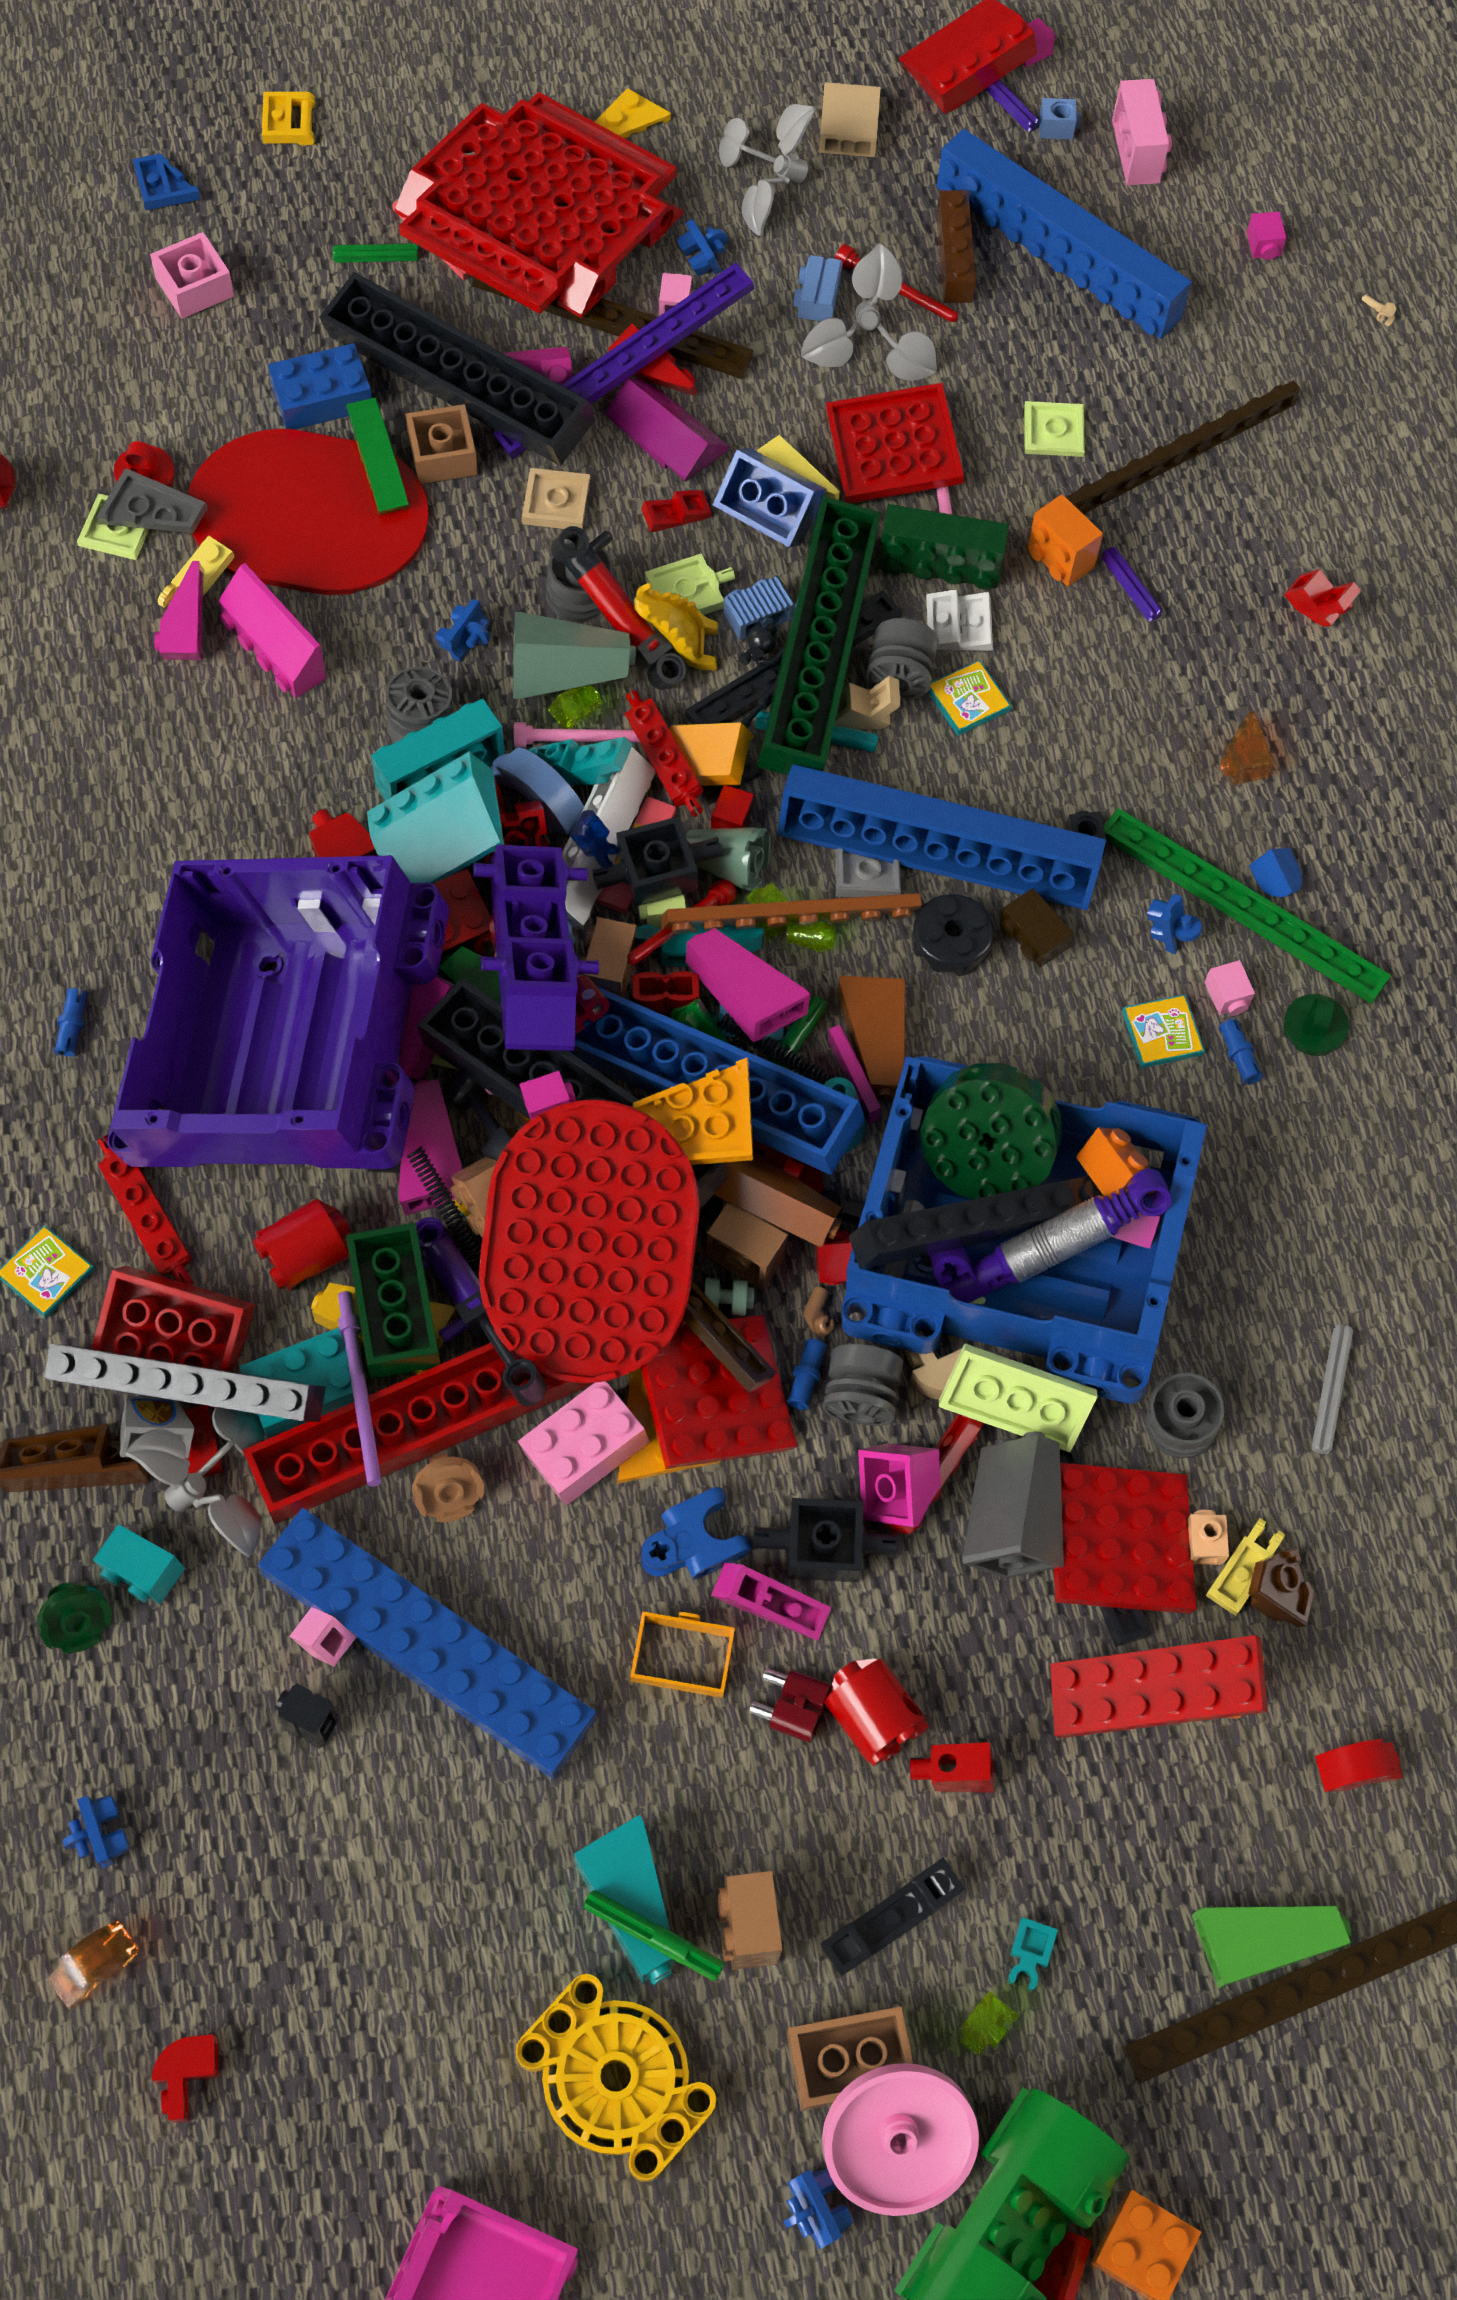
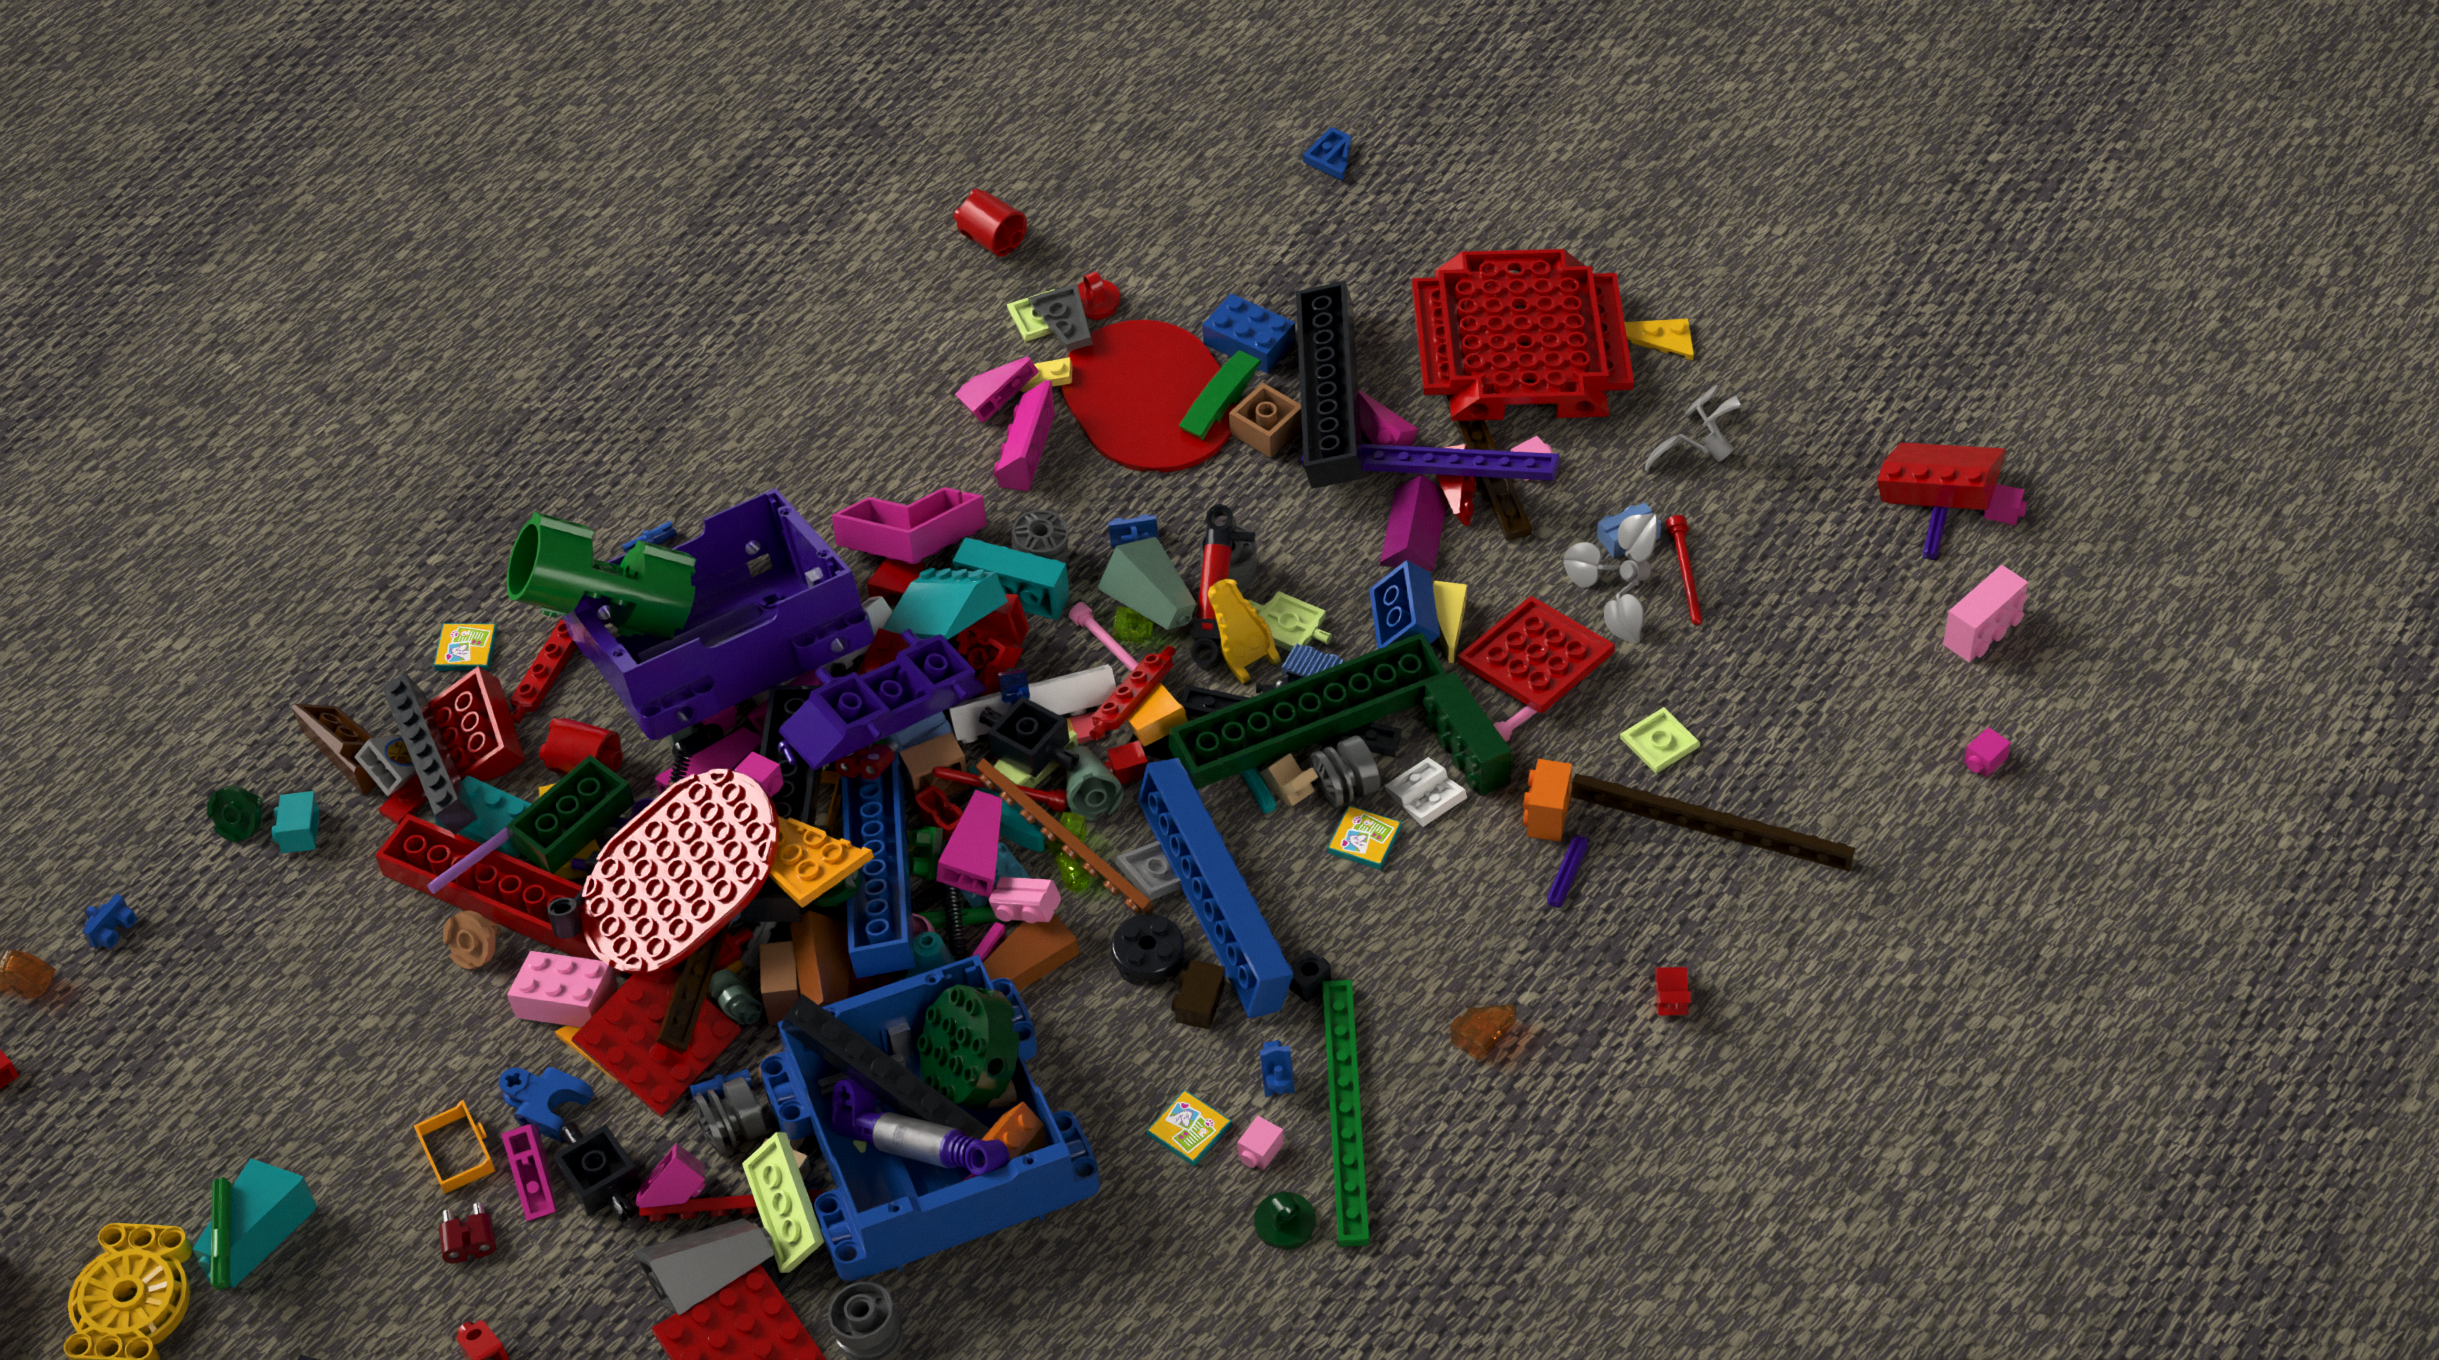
camera: 60 degrees right, 15 degrees down
(138, 1098) = (556, 565): none -> green cylinder
(164, 1458) = (356, 768): light grey plant -> none
(192, 275) = (1267, 214): bright pink brick -> none
(278, 117) = (1453, 168): yellow plate -> none
(303, 801) = (911, 529): none -> dark pink piece
(307, 1715) = (254, 969): black brick -> none
(323, 1636) = (317, 944): bright pink brick -> none
(375, 252) = (1391, 286): green axle -> none
(429, 1643) = (355, 1005): blue brick -> none
(520, 1057) = (785, 748): none -> dark purple piece
(541, 782) = (1039, 645): medium blue arch -> none
(555, 498) = (1291, 508): tan plate -> none
(587, 763) = (1076, 650): teal slope -> none
(680, 510) = (1351, 577): red slope -> none
(712, 242) = (1592, 446): blue hips -> none
(751, 1919) = (277, 1291): medium nougat brick -> none
(836, 988) = (1025, 899): none -> bright pink brick
(849, 119) = (1802, 449): tan brick -> none
(874, 1709) = (488, 1276): red cylinder -> none
(956, 246) = (1755, 578): reddish brown brick -> none
(1058, 118) = (1949, 563): medium blue brick -> none
(1064, 234) = (1831, 630): blue brick -> none
(1240, 1051) = (1214, 1185): blue pin -> none
(1277, 872) = (1397, 1114): blue brick -> none
(1384, 310) = (2005, 872): tan hand -> none

